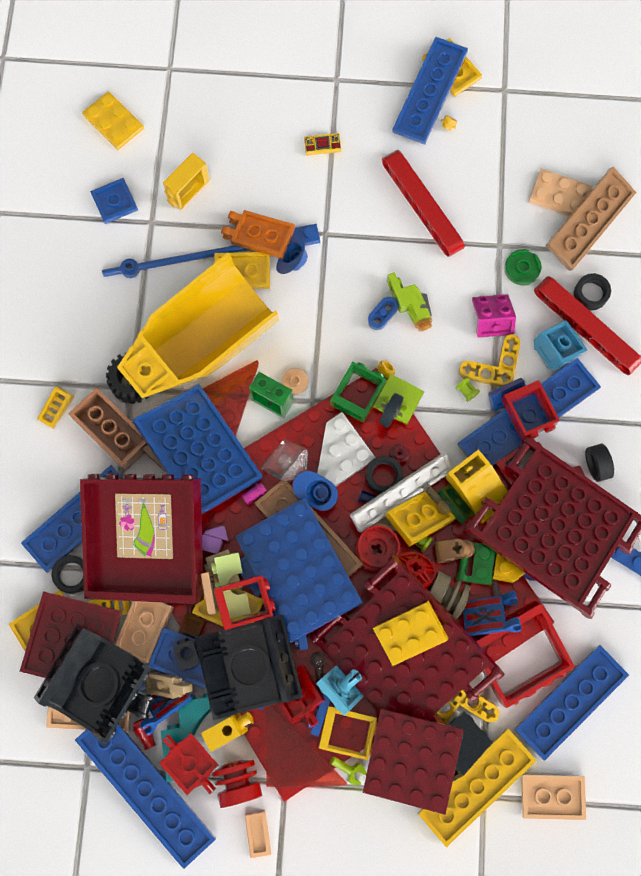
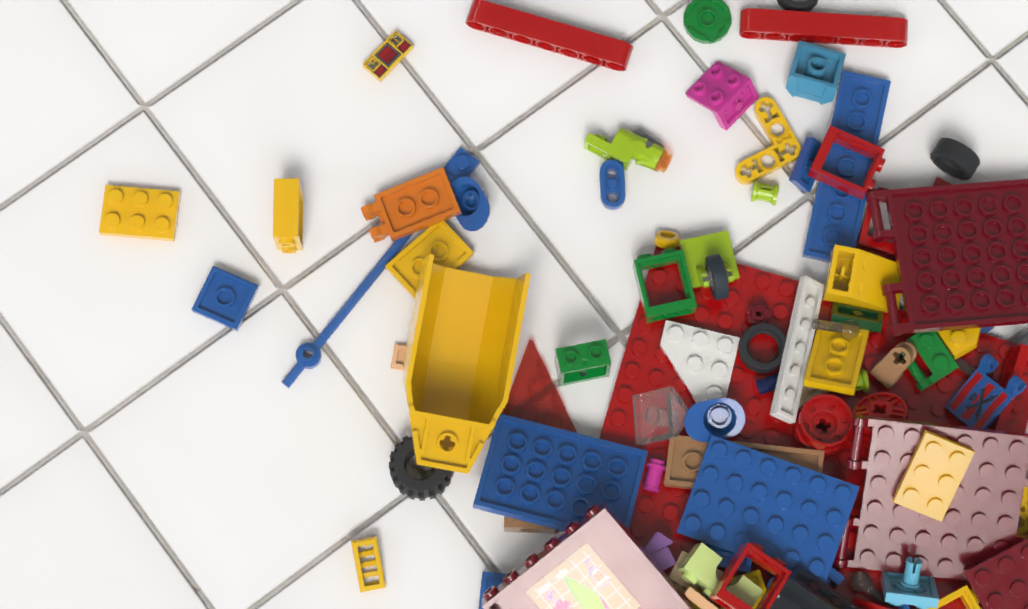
camera: 40 degrees left, 0 degrees up
(109, 428) = (449, 536): nougat brick -> none
(296, 380) = (587, 327): light nougat piece -> none
(450, 598) = (936, 407): dark tan wheel -> none

